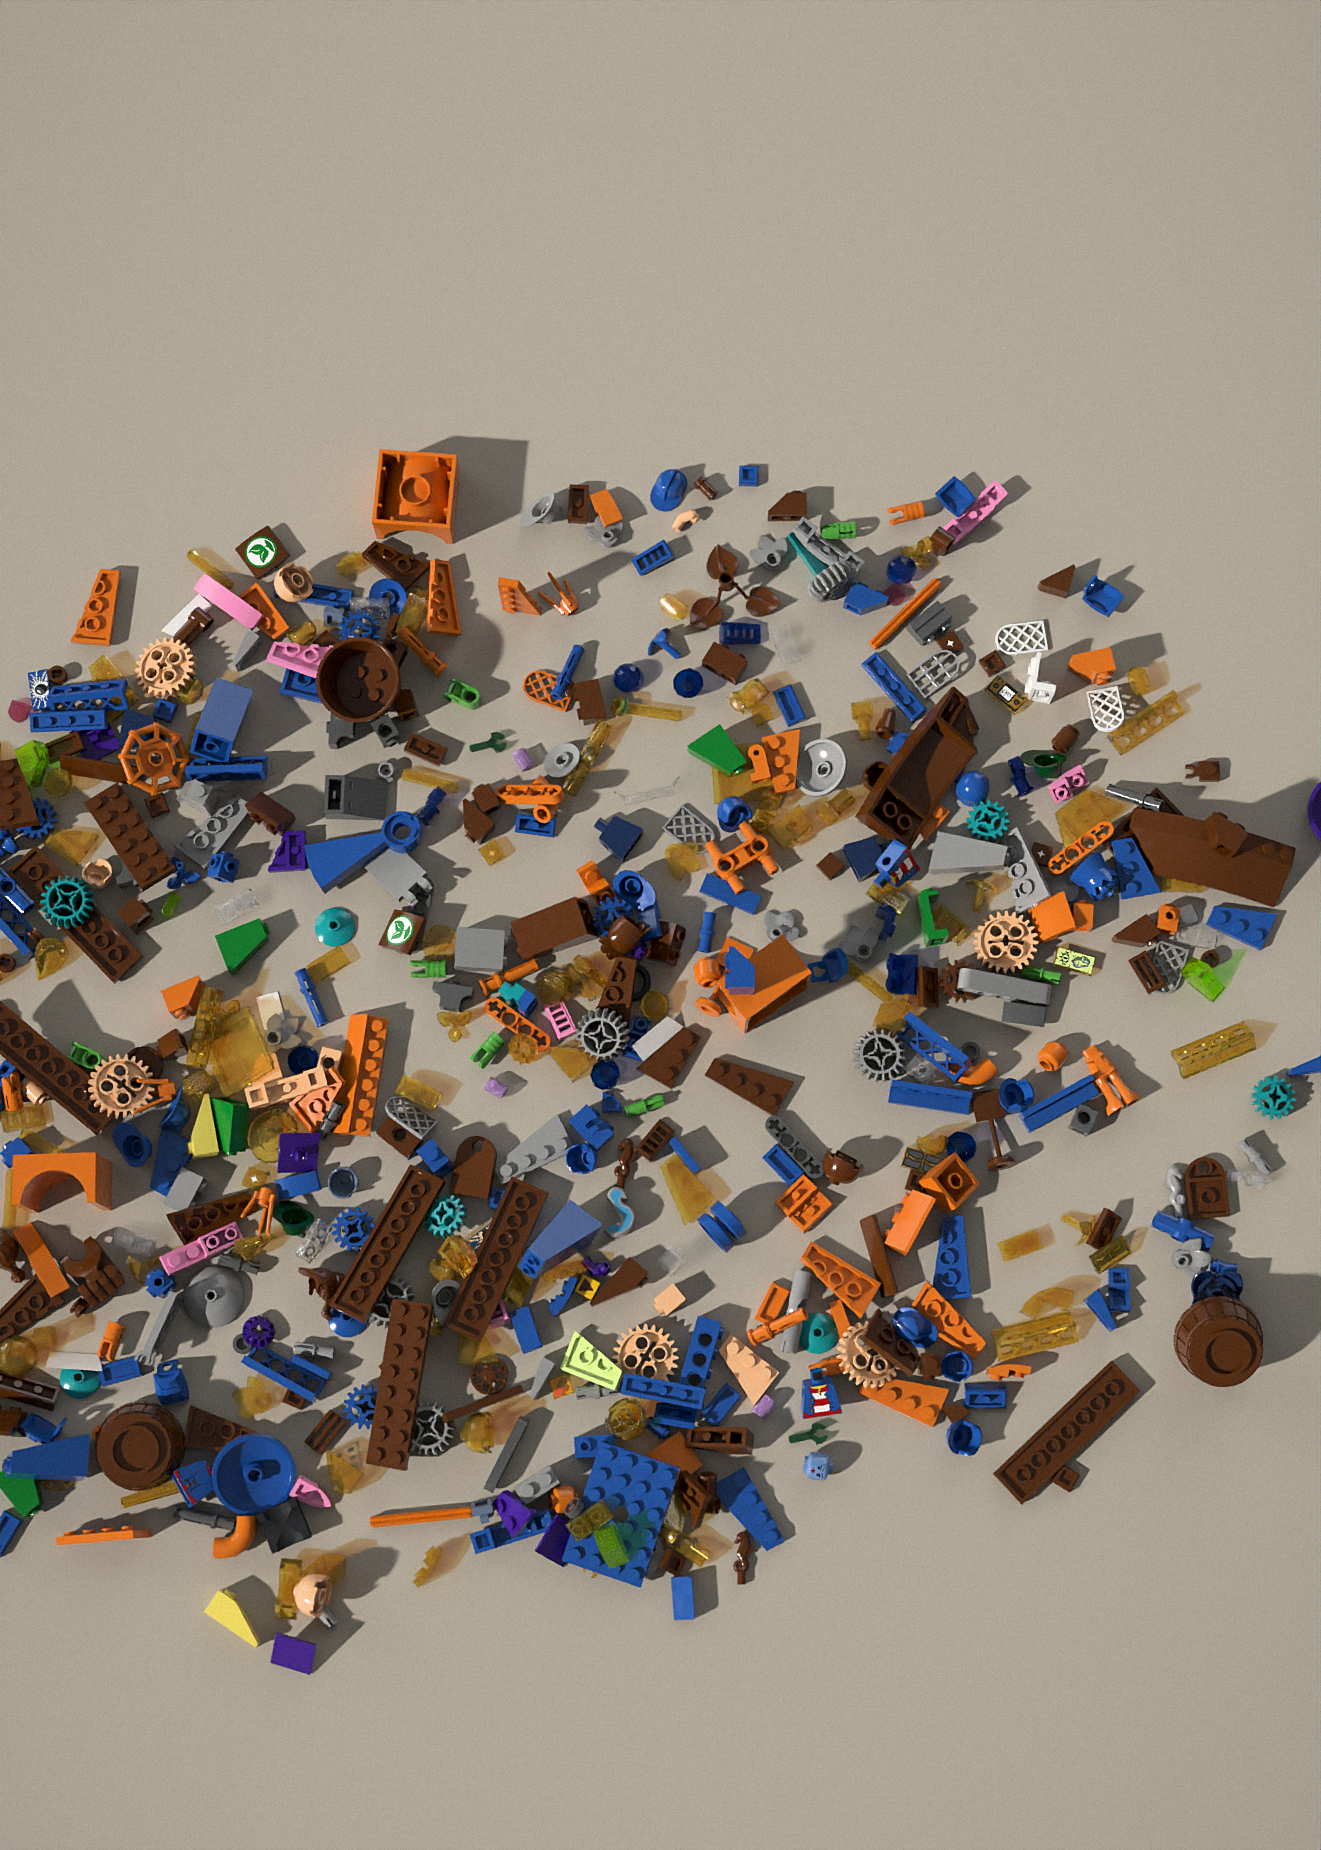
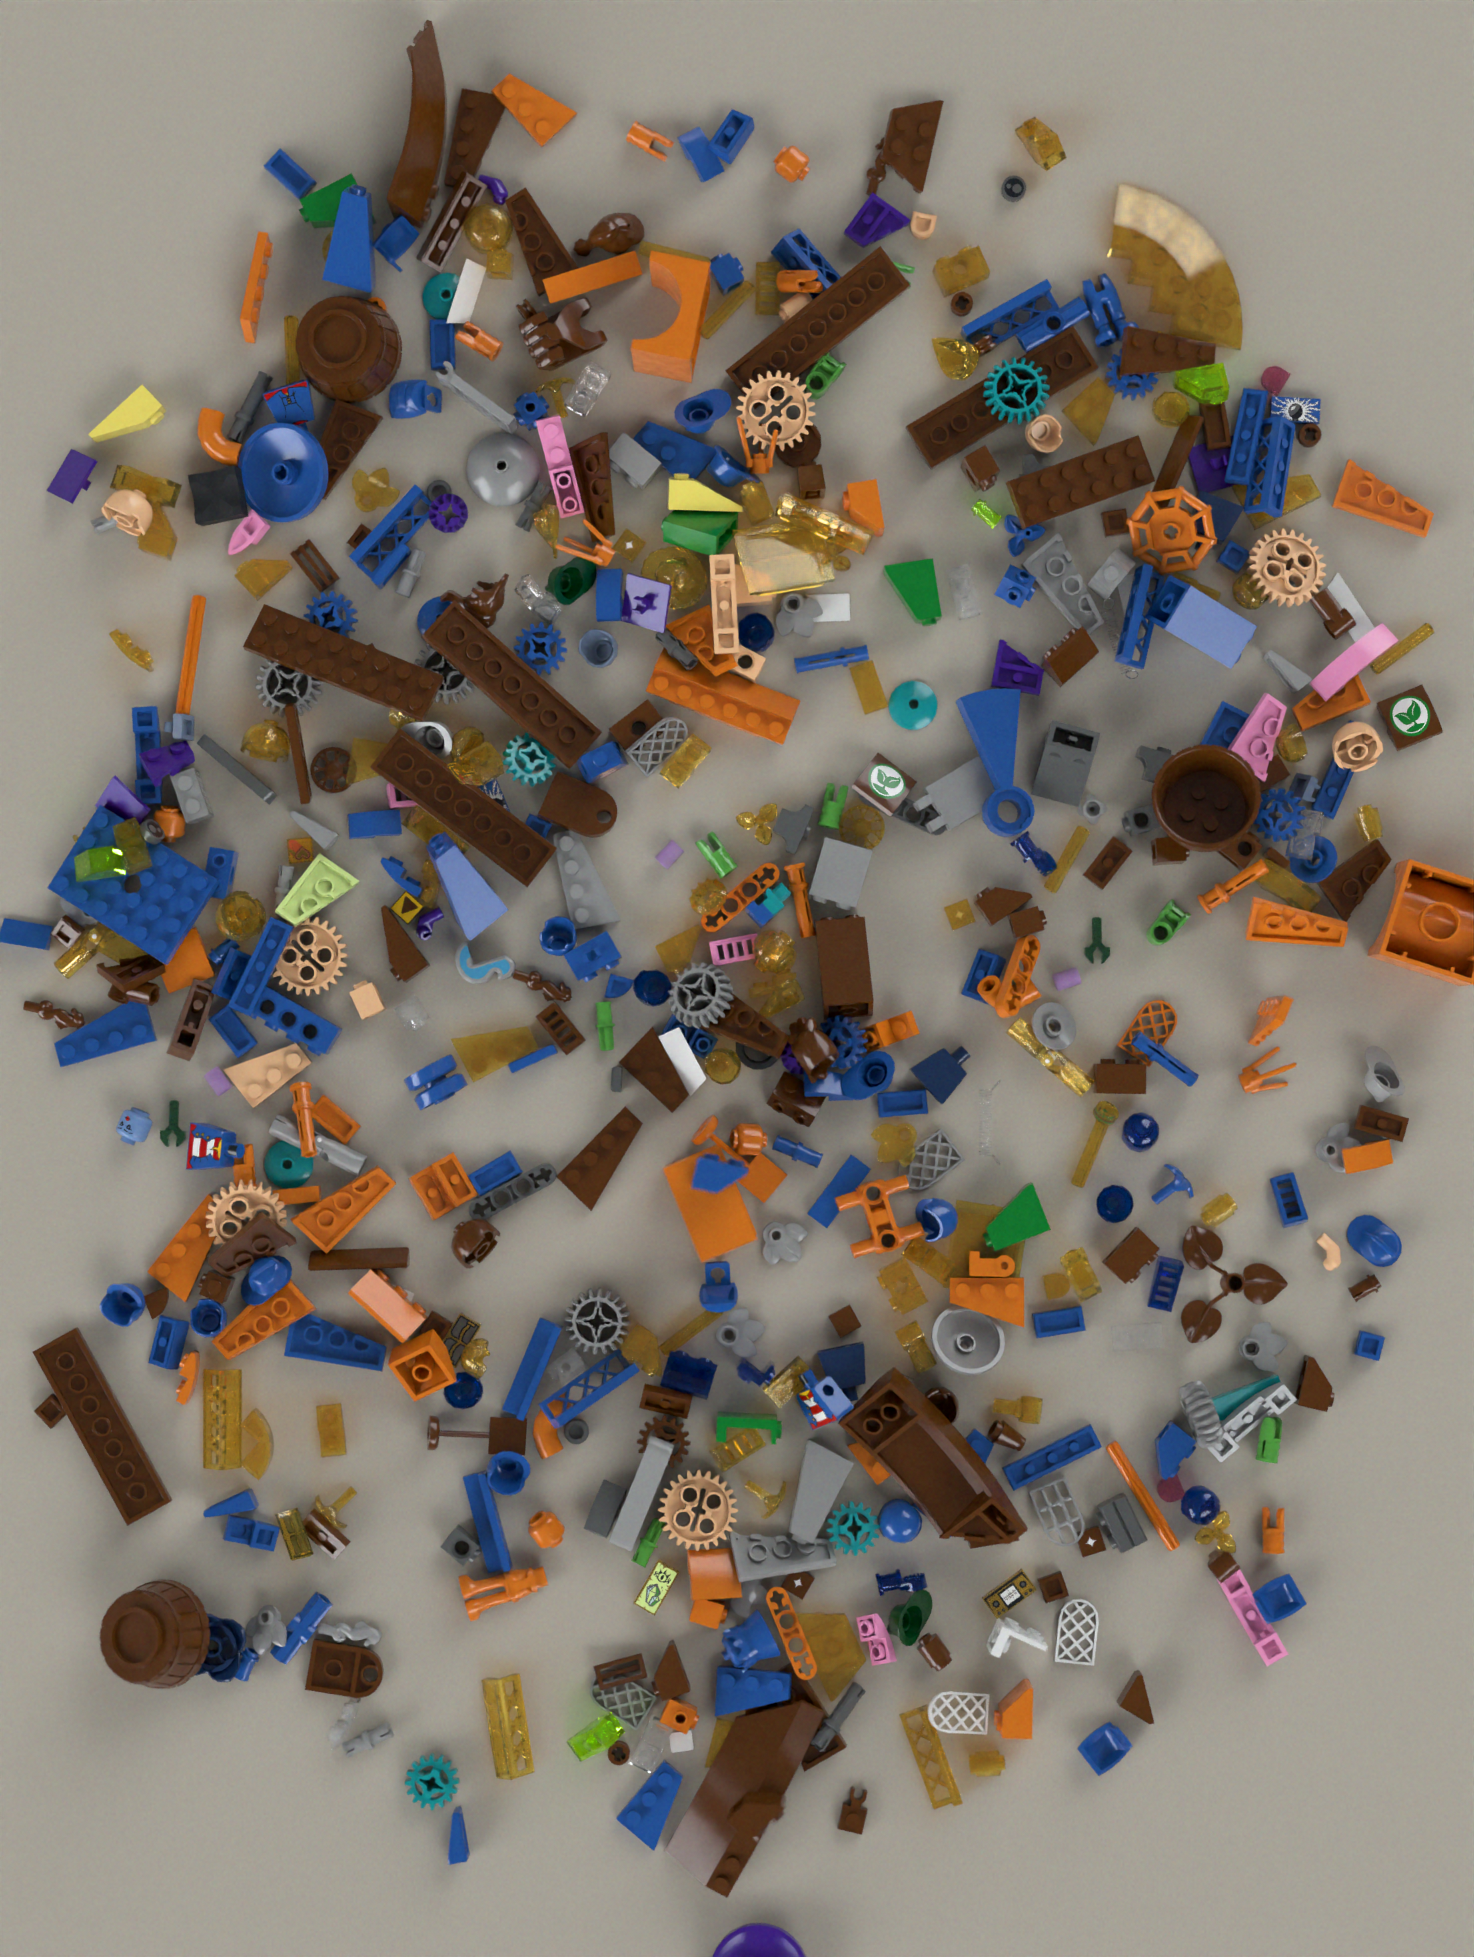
camera: 100 degrees right, 10 degrees up
(649, 861) = (902, 1103): none -> blue tile
(683, 1086) = (616, 1079): none -> dark grey tile

